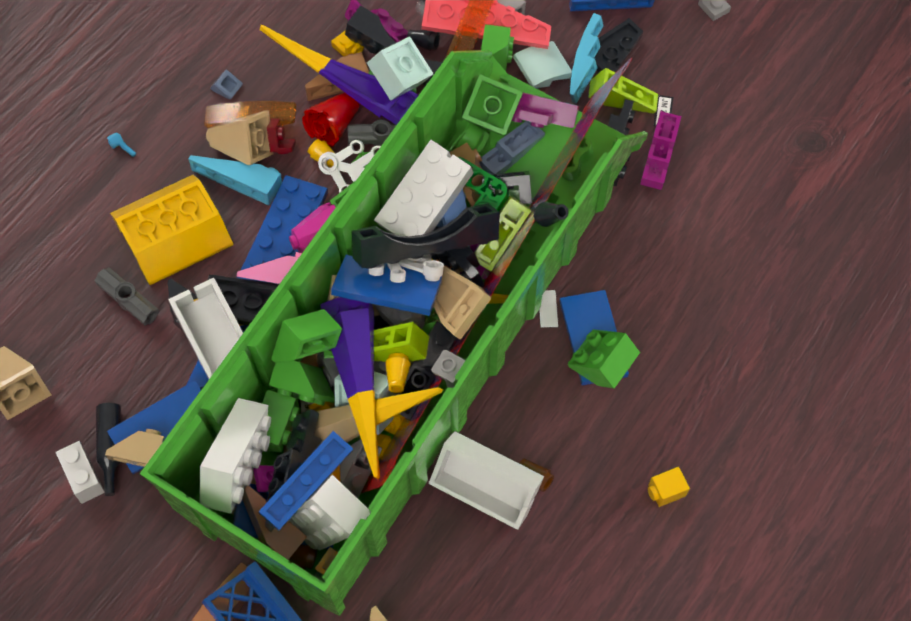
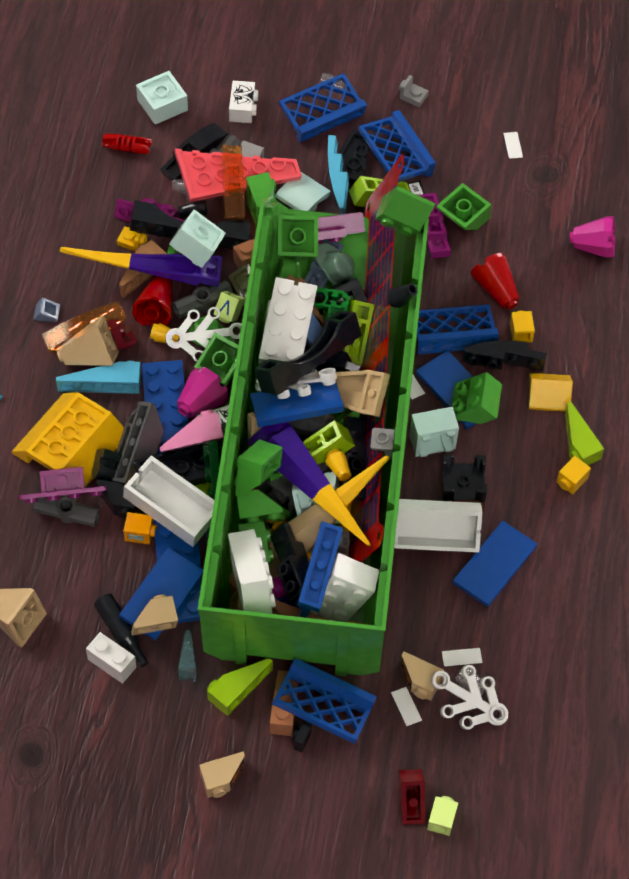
camera: 25 degrees left, 5 degrees down
(128, 267) = (62, 482): none -> magenta bracket
(152, 512) = (187, 664): none -> clear light blue slope
(180, 347) = (139, 528): none -> light orange brick
(182, 562) = (235, 686): none -> lime slope
(187, 266) = (105, 464): none -> black leg
(233, 255) = (139, 440): none -> dark grey wedge
(522, 149) = (334, 264): none -> sand green piece
(531, 549) = (495, 564): none -> blue tile
(539, 374) = (433, 431): none -> light aqua container
(545, 440) = (463, 480): none -> black panel
(598, 122) = (404, 211): none -> bright green slope
(620, 282) = (455, 339): none -> blue fence
(655, 315) = (495, 353): none -> black slope
(682, 50) = (409, 143): none -> blue fence
(692, 381) = (549, 391): none -> yellow slope
(696, 236) = (497, 280): none -> red cone
(697, 455) = (580, 438): none -> lime slope
(698, 297) = (522, 326): none -> yellow brick
(701, 145) = (466, 208): none -> bright green slope
(792, 97) = (513, 145): none -> white sticker
(830, 232) = (595, 237): none -> dark pink cone

